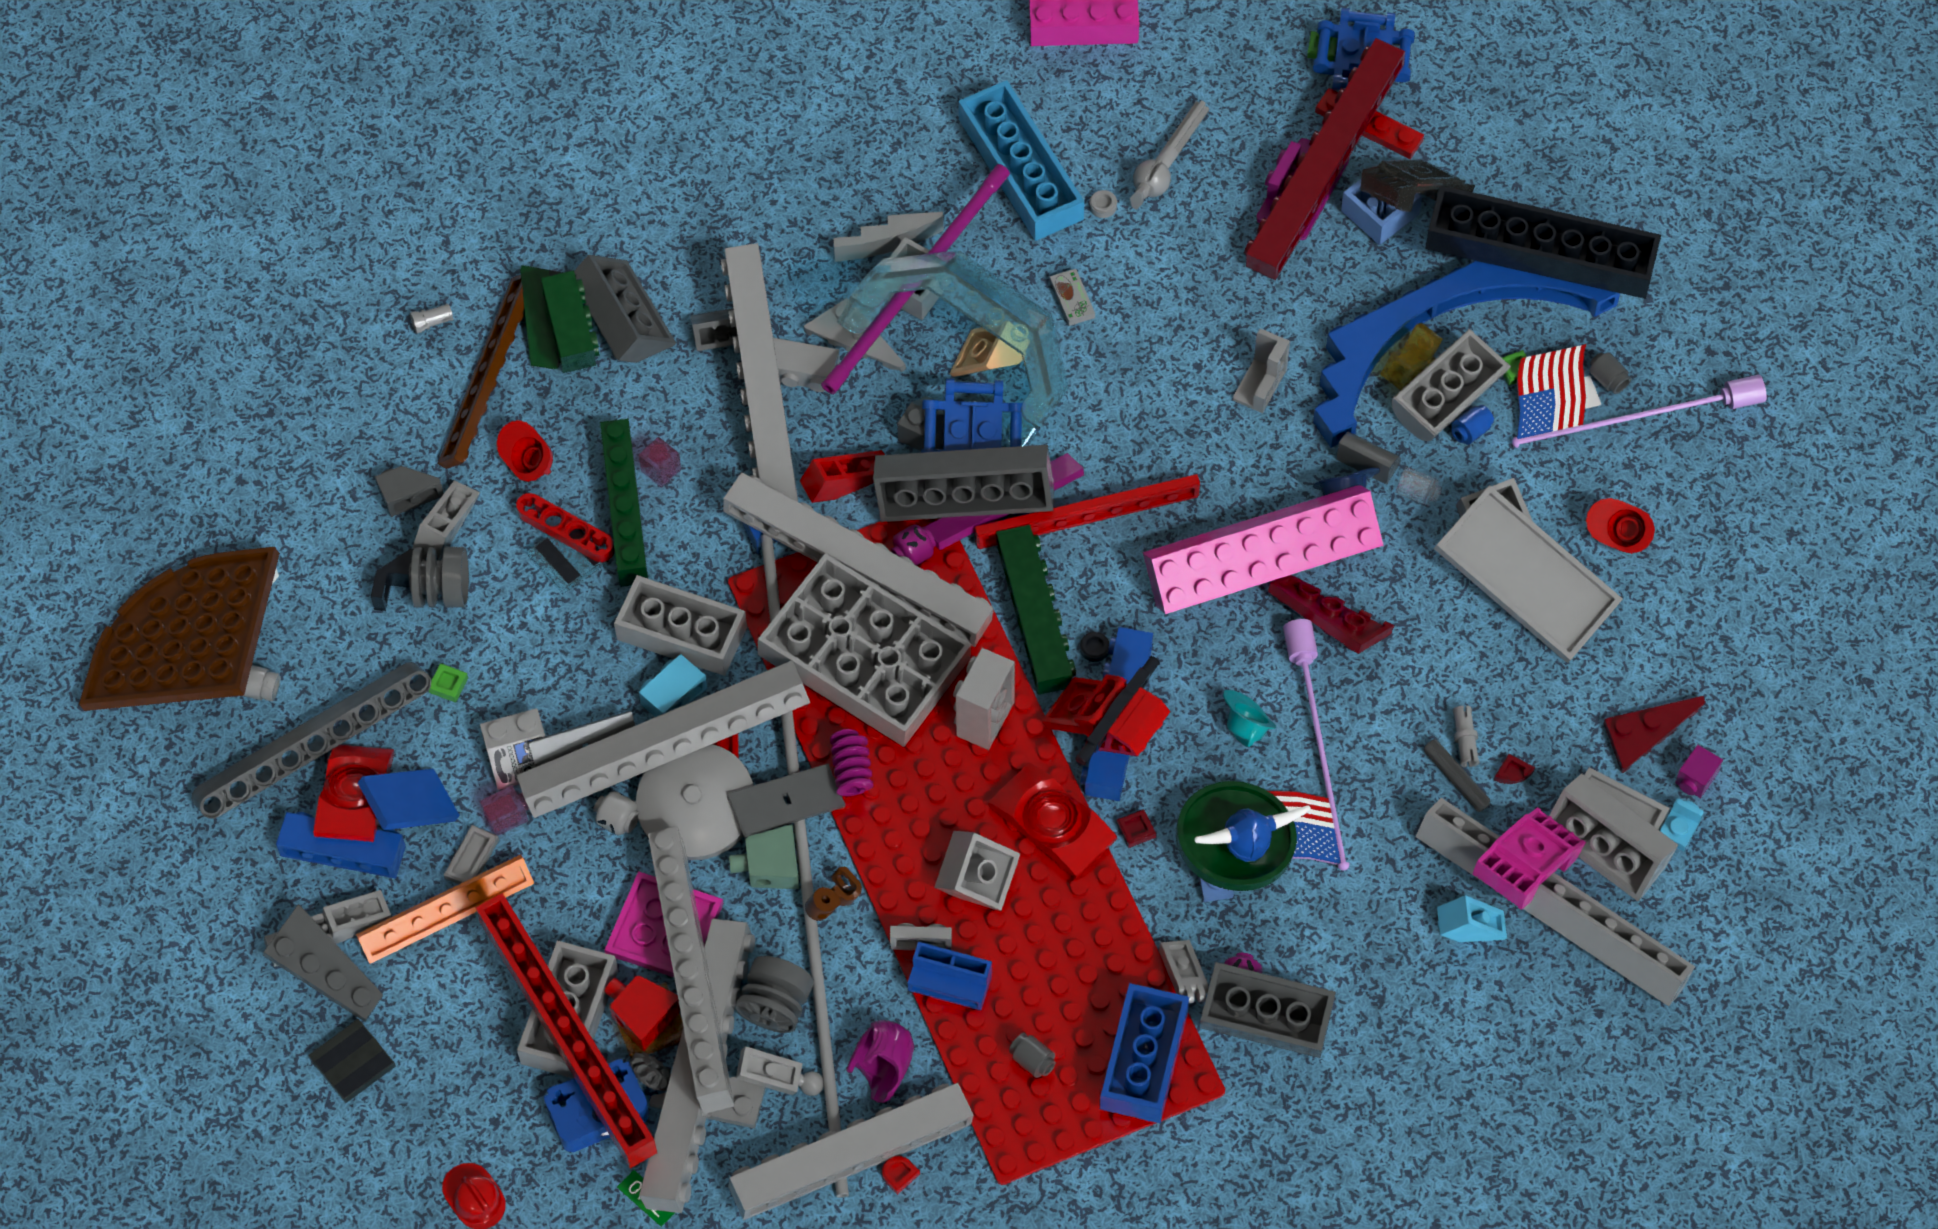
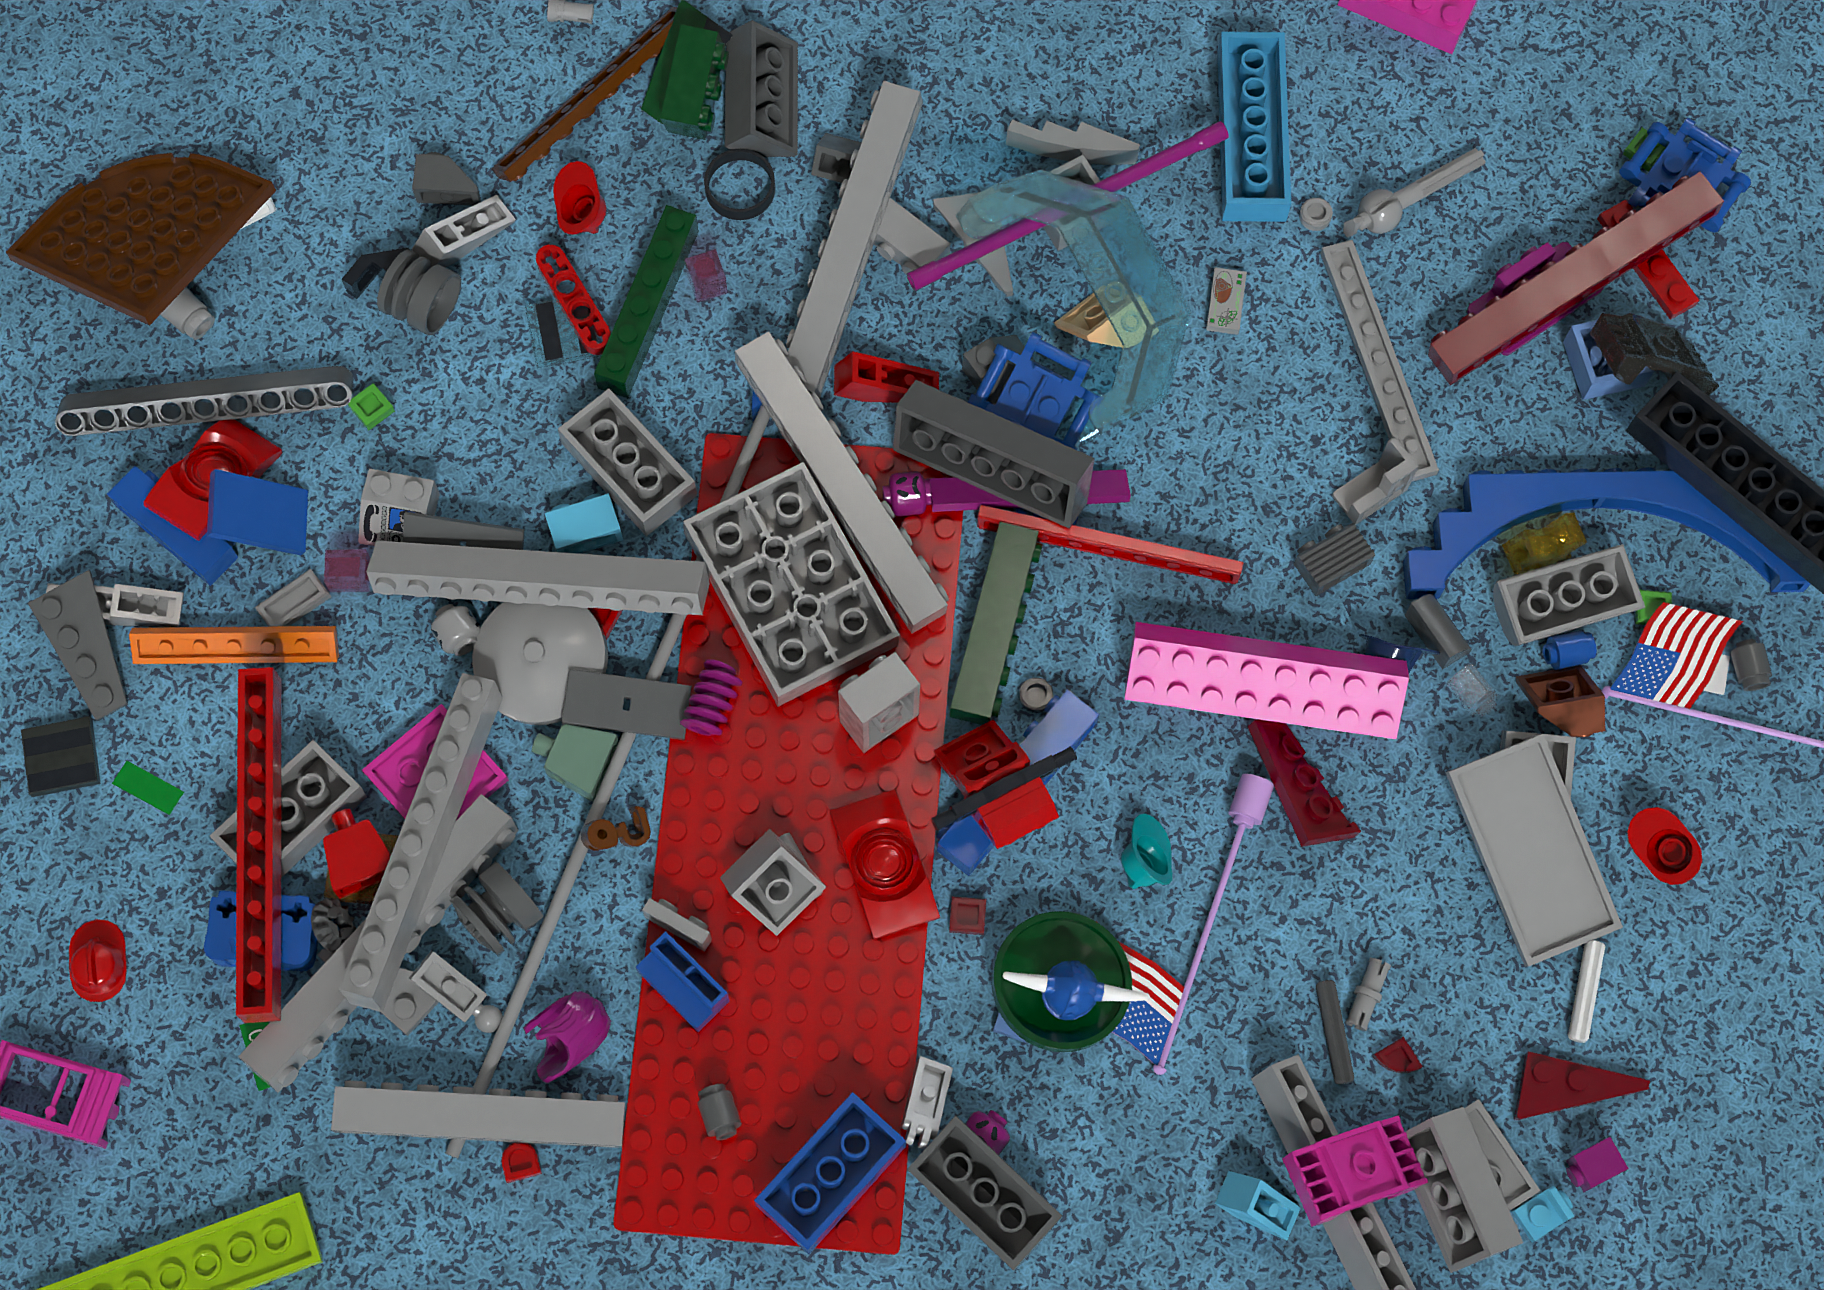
camera: 25 degrees right, 10 degrees up
(436, 1050) = (148, 787): none -> green sticker
(644, 359) = (734, 155): none -> black tyre
(1205, 279) = (1377, 354): none -> light grey plate
(1261, 442) = (1333, 558): none -> dark grey brick
(1491, 458) = (1566, 699): none -> copper slope
(1622, 657) = (1586, 991): none -> white axle

